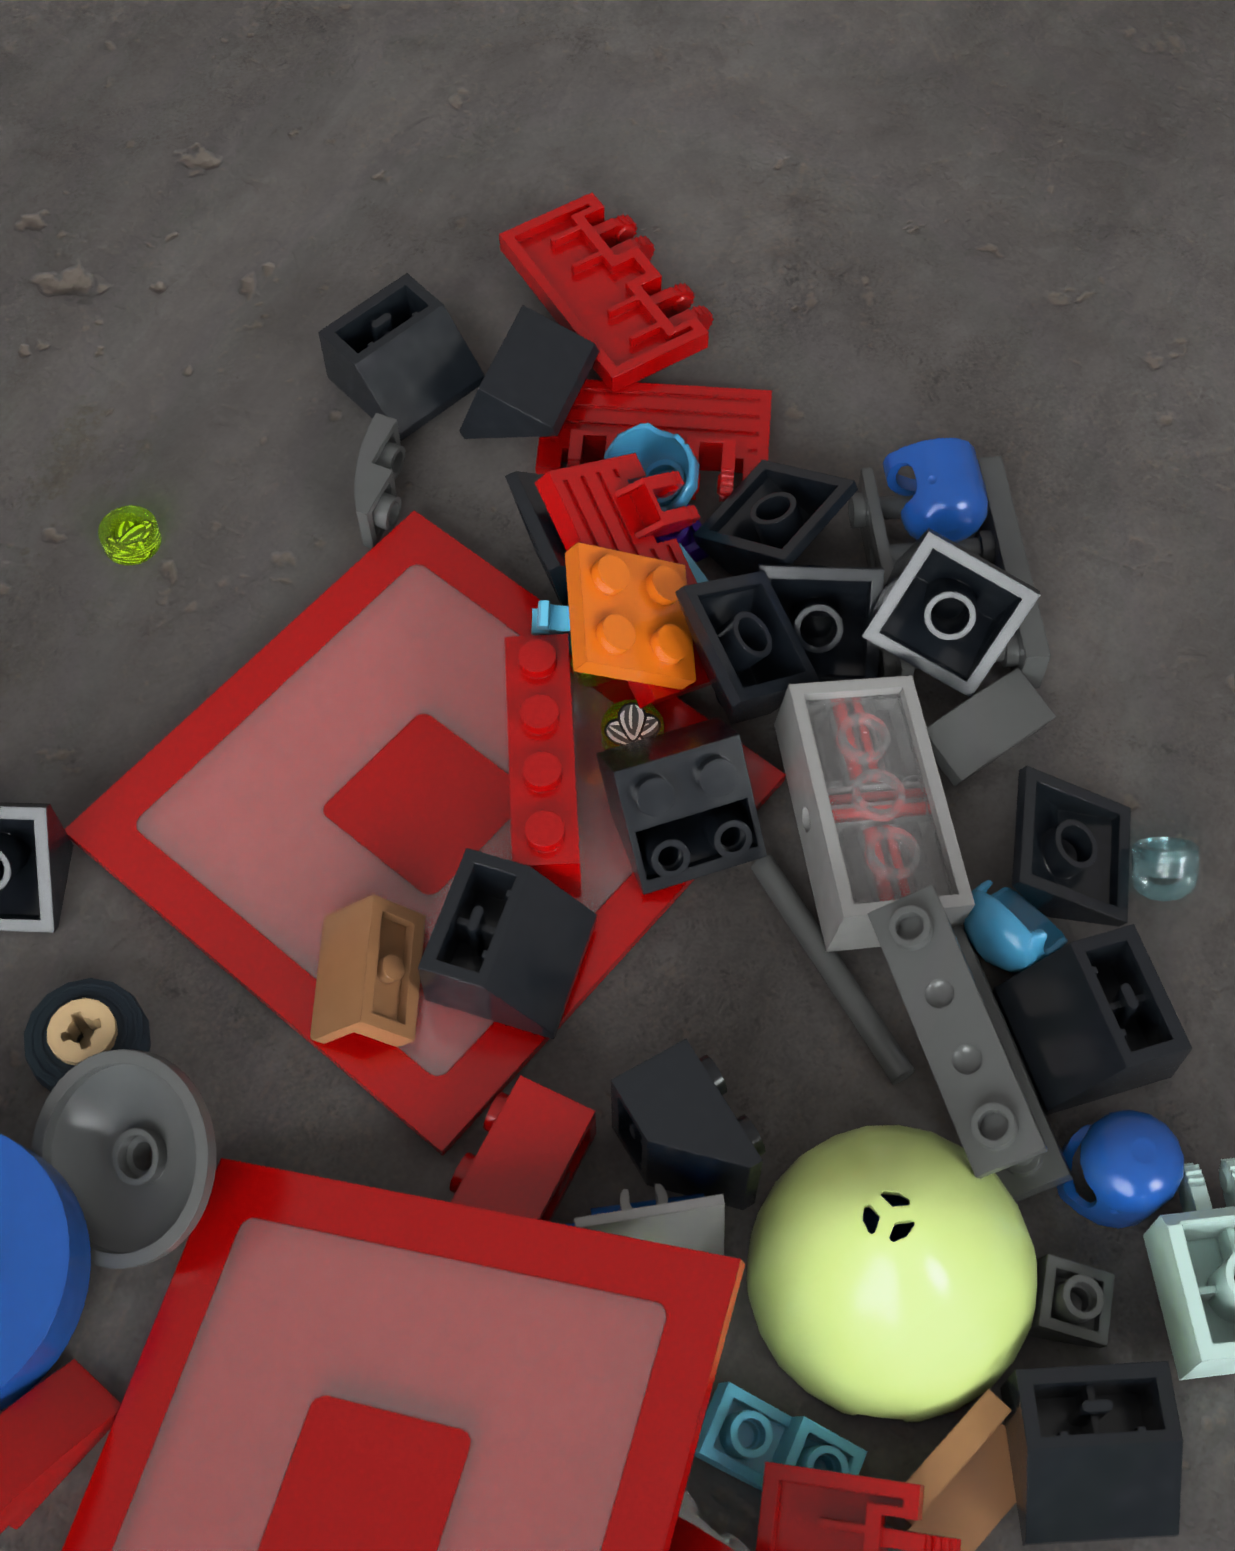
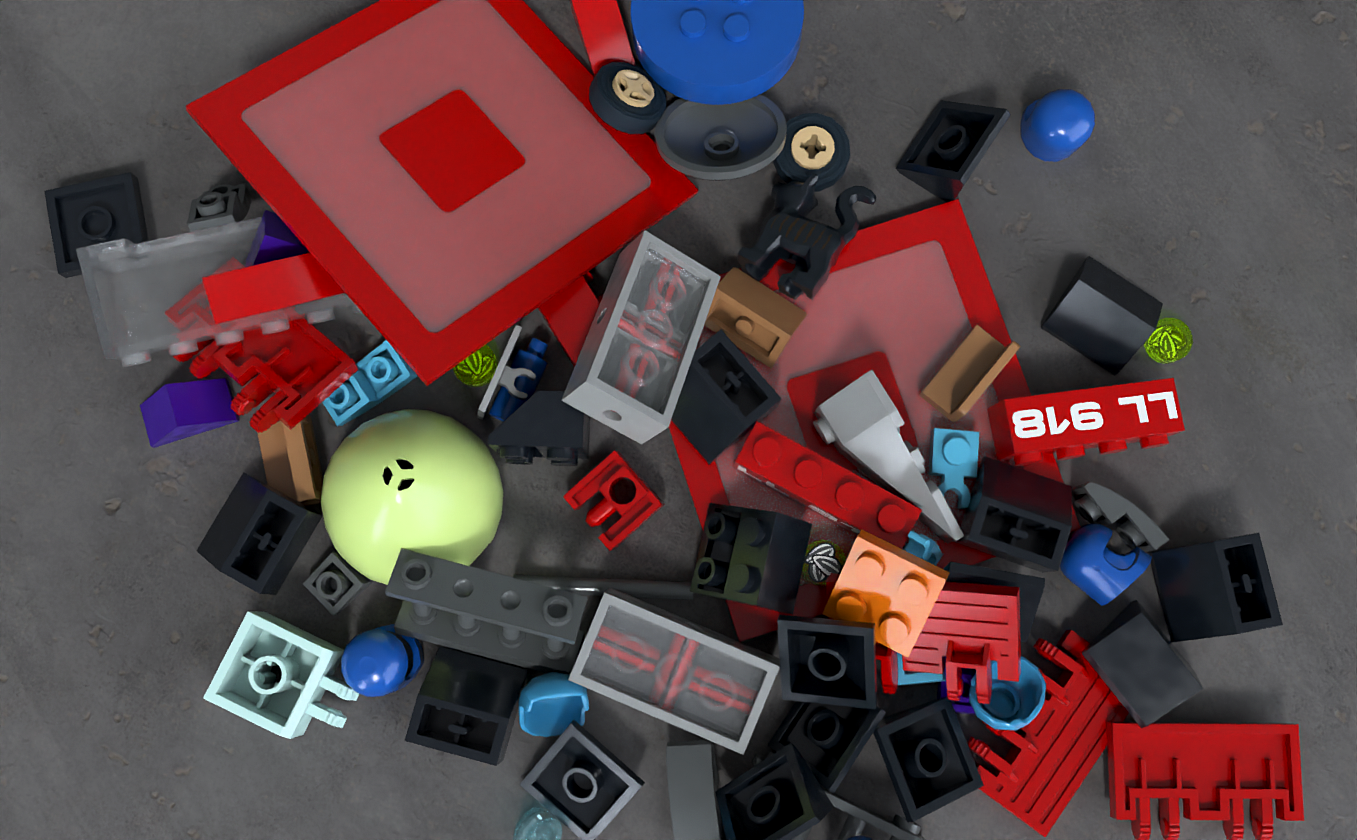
camera: 120 degrees right, 20 degrees up
(131, 1329) = (627, 98): none -> black wheel
(135, 606) = (1103, 316): none -> black slope
(229, 969) = (801, 241): none -> black animal
(286, 555) = (1084, 420): none -> red brick
(298, 689) = (967, 373): none -> medium nougat panel
(417, 665) = (953, 458): none -> medium azure plate
(442, 739) = (867, 433): none -> light grey wedge
(444, 557) = (1018, 516): none -> black slope
(452, 479) = (1096, 567): none -> blue helmet
(489, 1052) = (642, 339): none -> brick
(712, 977) = (604, 479): none -> red brick

